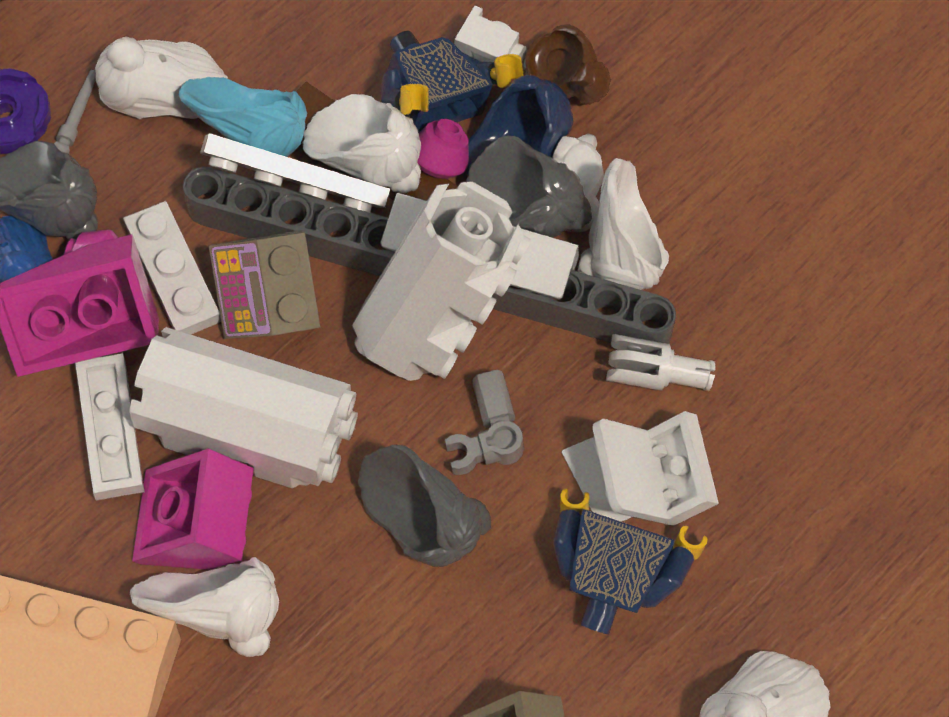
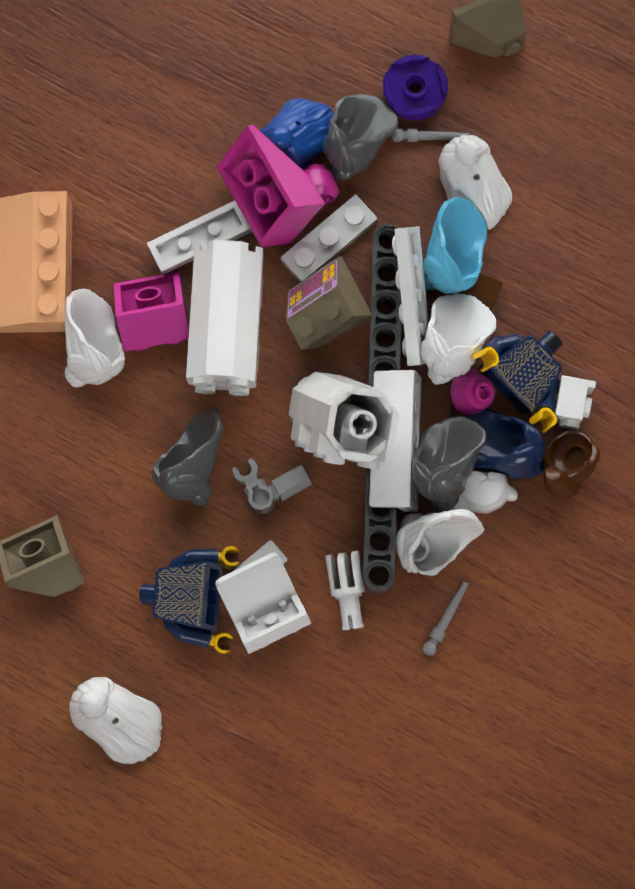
camera: 80 degrees right, 15 degrees up
(742, 279) = (438, 633): none -> light grey piece

